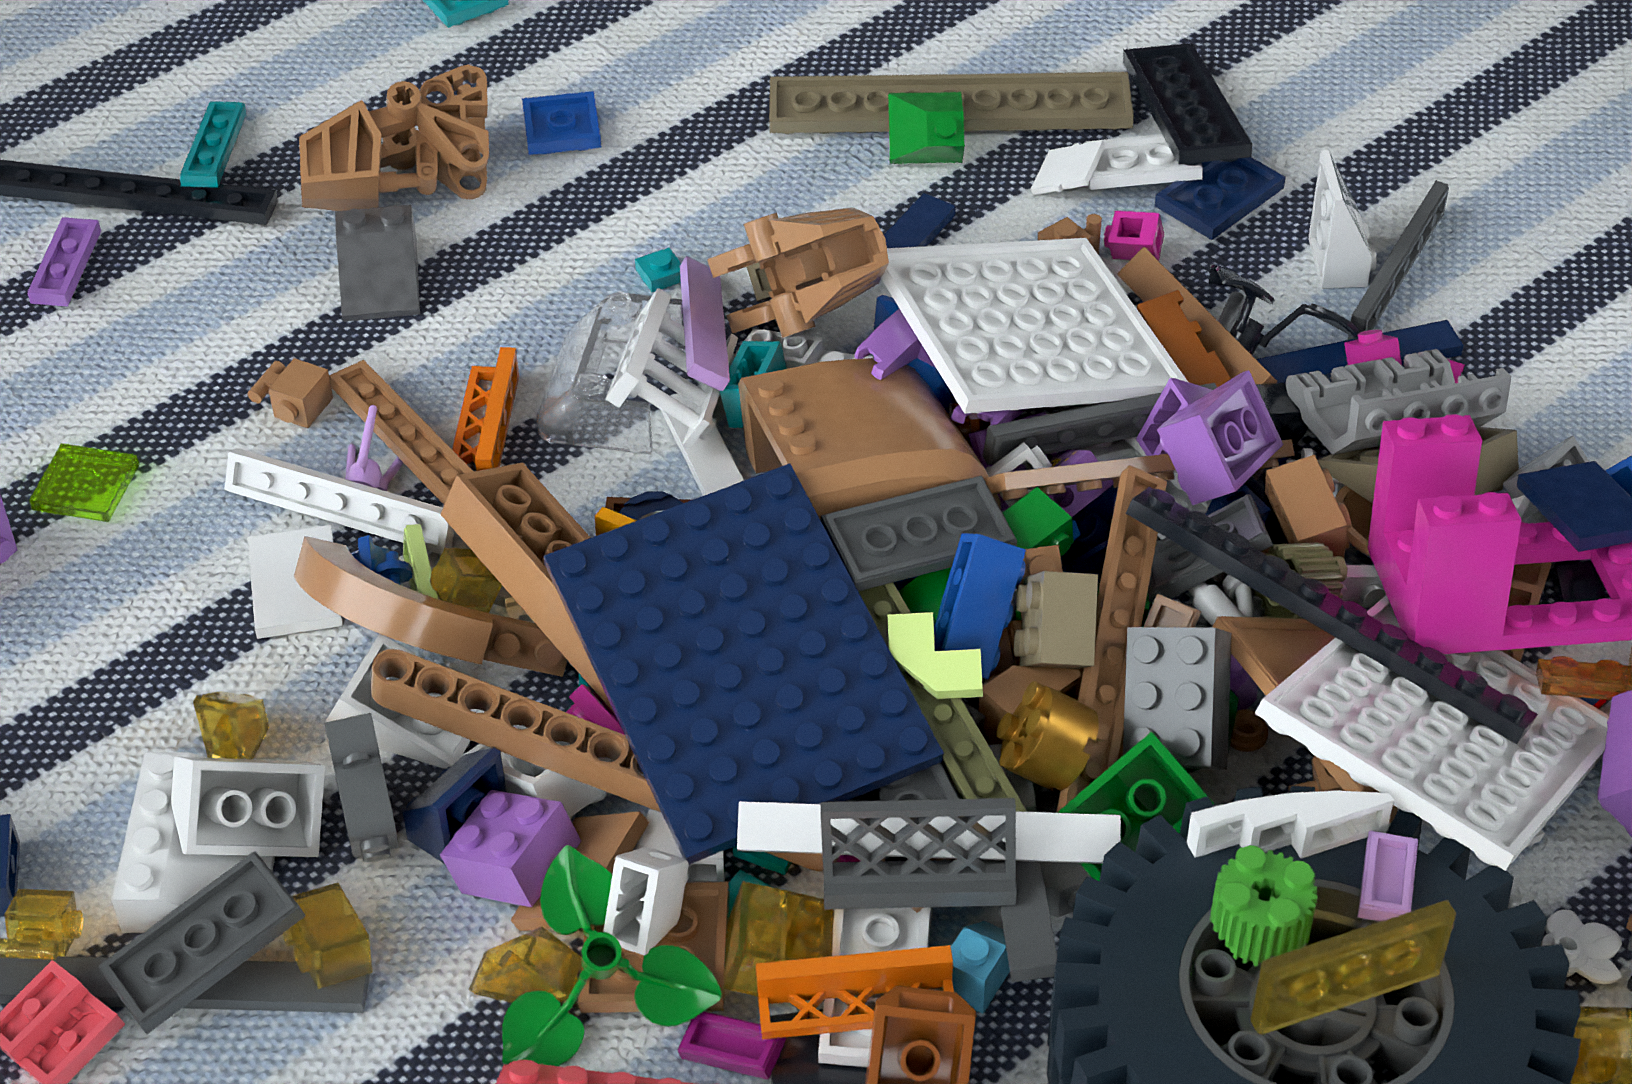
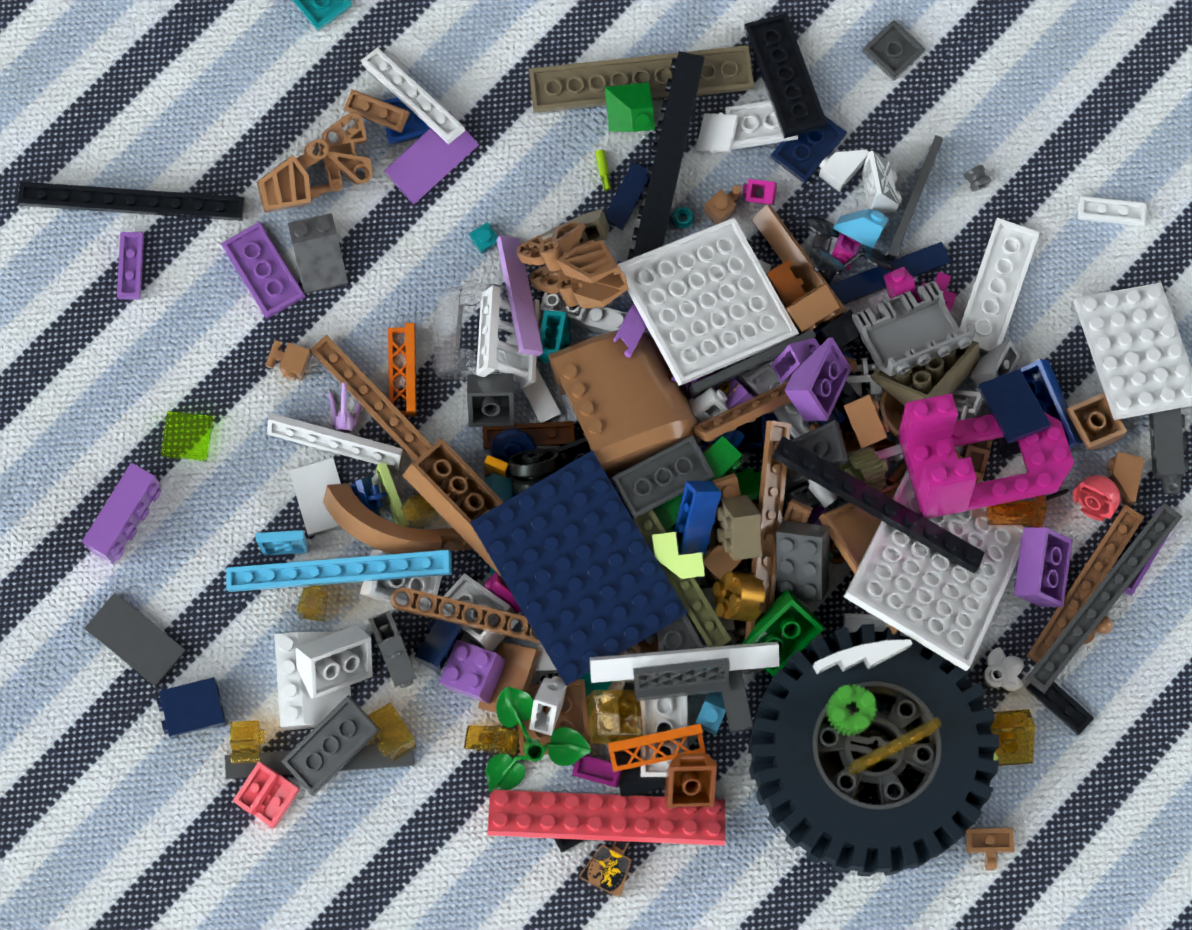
camera: 10 degrees left, 30 degrees up
(200, 611) = (282, 542): none -> medium azure tile
(213, 144) = (196, 158): teal tile -> none
(282, 286) = (263, 270): none -> medium lavender tile
(289, 658) = (339, 571): none -> medium azure plate
(524, 106) = (376, 111): none -> medium nougat tile
(579, 90) = (413, 95): none -> white tile
(591, 166) = (428, 162): none -> medium lavender tile
(626, 451) = (490, 400): none -> dark grey brick
(873, 198) = (603, 169): none -> lime pin
(994, 151) = (667, 153): none -> black brick
(1217, 353) = (812, 307): none -> medium nougat brick
(1272, 315) = (845, 249): none -> dark pink bracket
(1274, 219) = (842, 167): none -> white slope
(1311, 282) = (862, 226): none -> medium azure slope
(1366, 99) = (893, 50): none -> dark grey tile
(1387, 876) = (910, 679): lavender tile -> none
(1508, 245) = (977, 178): none -> dark grey wheel
(1554, 372) = (998, 283): none -> white plate

